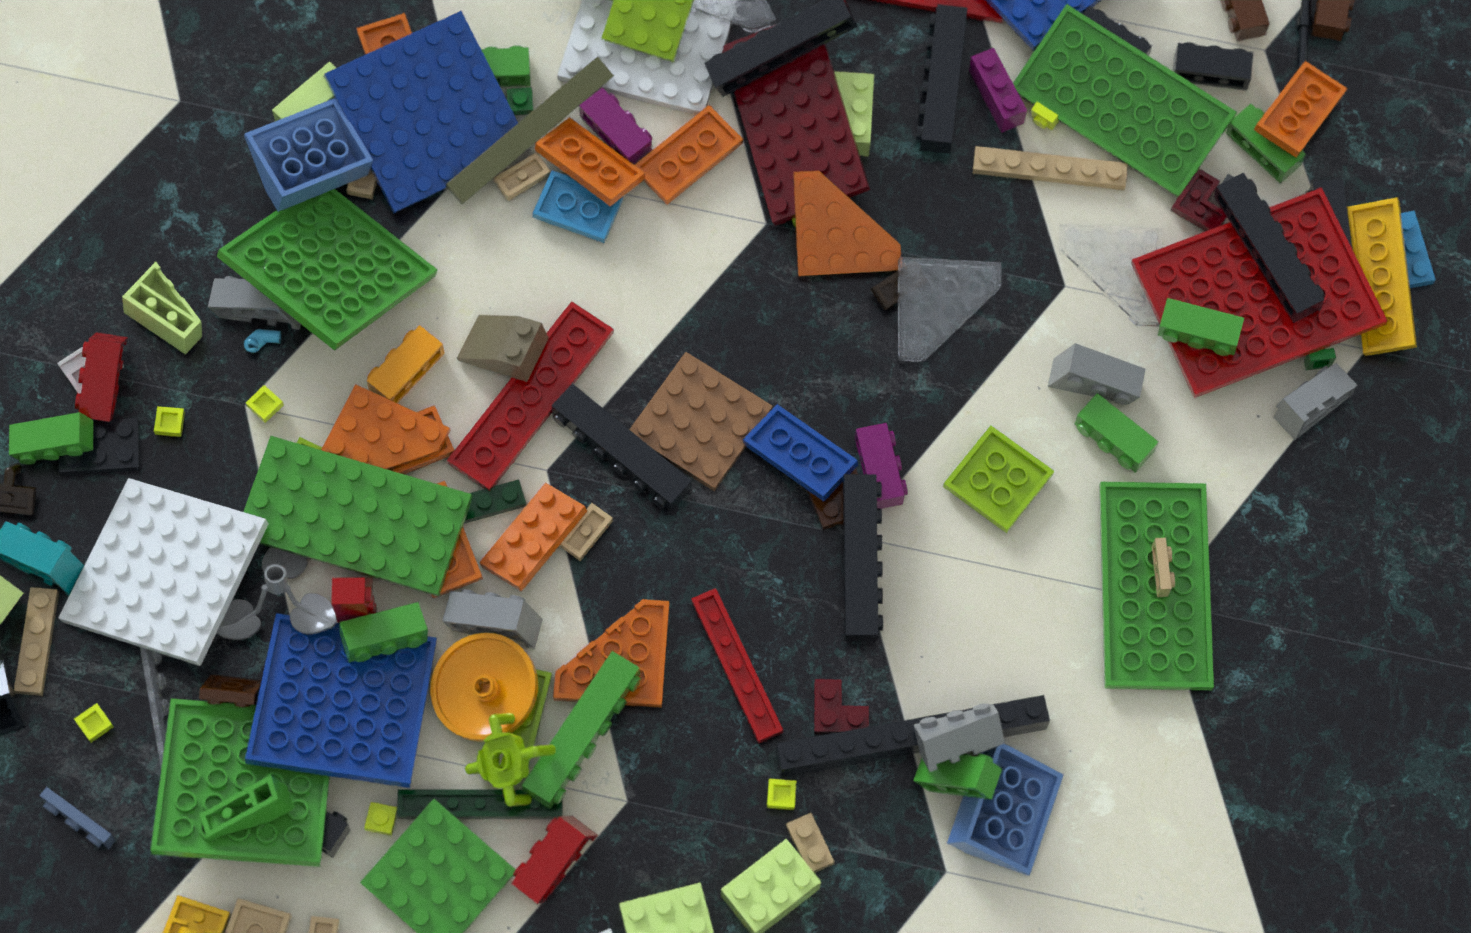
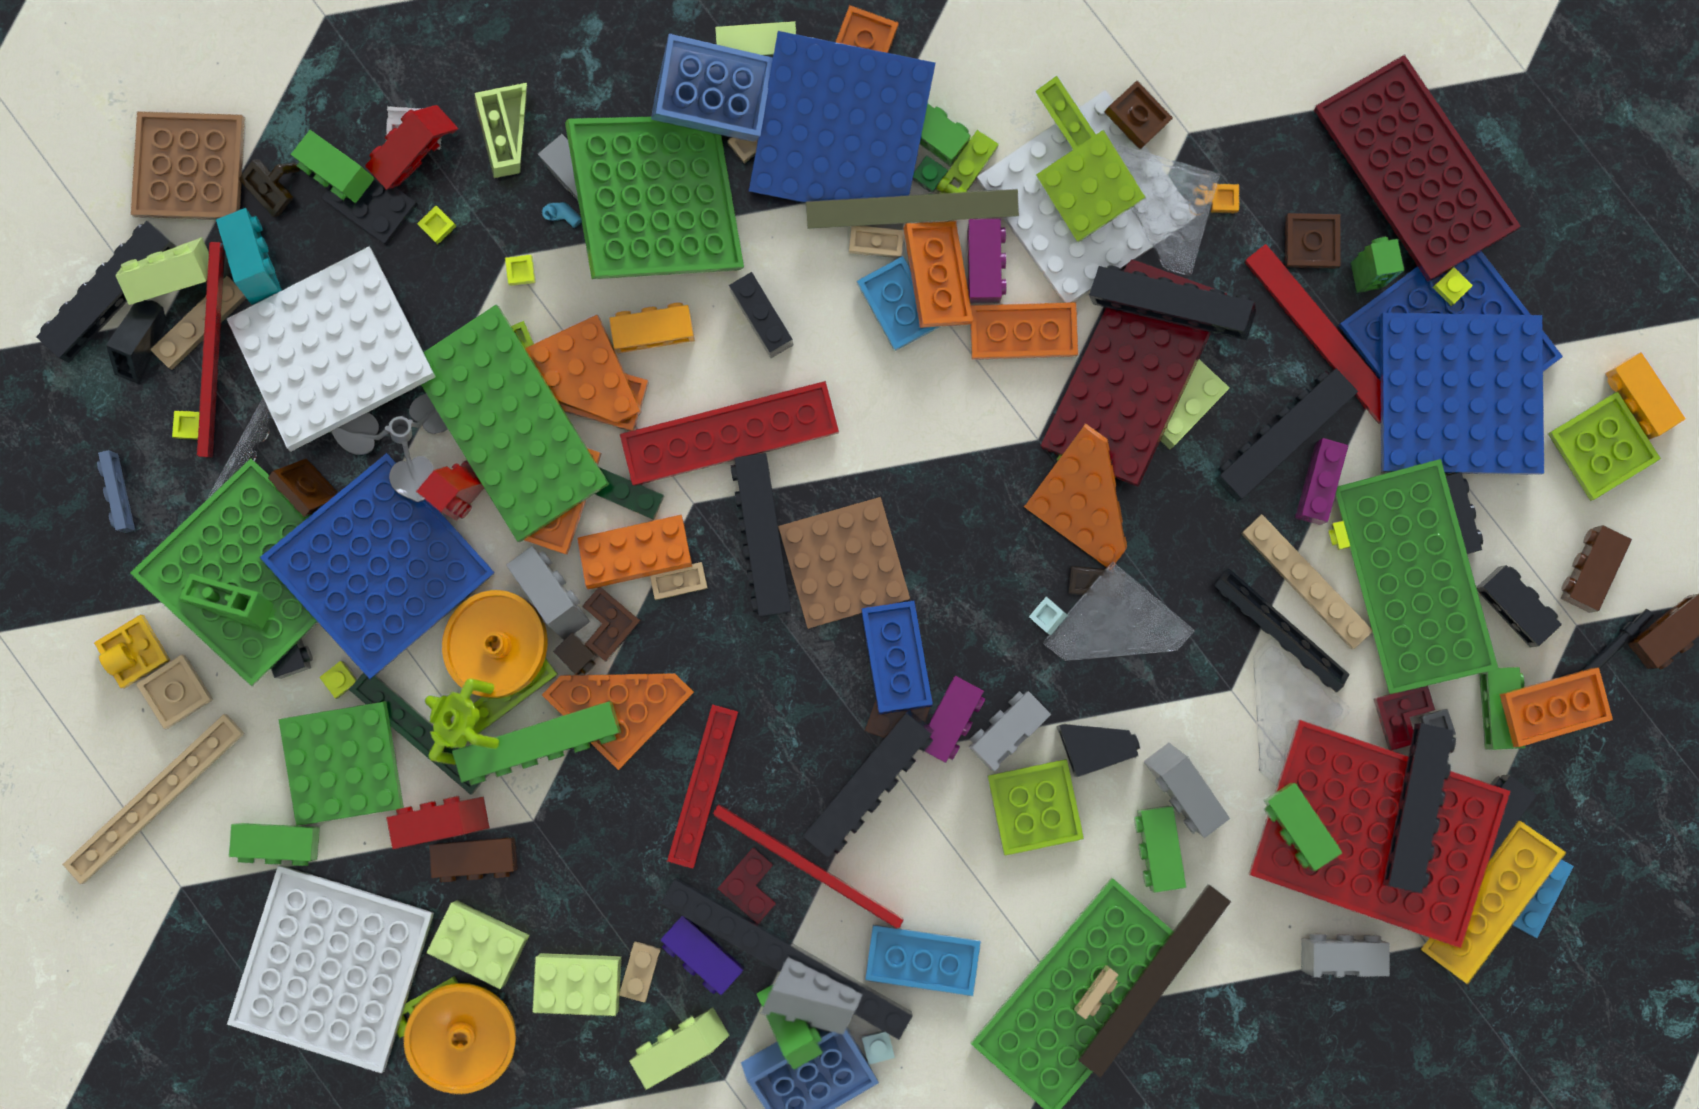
camera: 40 degrees right, 15 degrees up
(68, 648) = (211, 349): none -> red tile
(383, 632) = (451, 538): bright green brick -> none
(480, 291) = (761, 315): none -> black brick
(504, 345) = (740, 375): dark tan slope -> none
(543, 70) = (968, 163): none -> lime plate
(554, 647) = (576, 655): none -> dark brown brick
(564, 599) = (615, 620): none -> reddish brown plate
(606, 863) = (473, 859): none -> reddish brown brick
(781, 794) = (650, 916): neon yellow plate -> none
(846, 788) = (701, 955): none -> dark purple brick
(868, 657) = (808, 866): none -> red tile
(885, 336) = (1048, 616): none -> light aqua plate
(889, 871) = (679, 1048): none -> yellowish green wedge
(929, 439) = (1008, 730): none -> light grey wedge
(1003, 399) = (1096, 747): none -> black slope
(1015, 656) = (923, 960): none -> dark azure plate
(1039, 747) = (878, 1047): none -> light aqua plate
(1052, 213) = (1282, 630): none -> black plate
(1196, 528) = (1154, 980): none -> dark brown tile
(1320, 359) = (1381, 926): green plate -> none

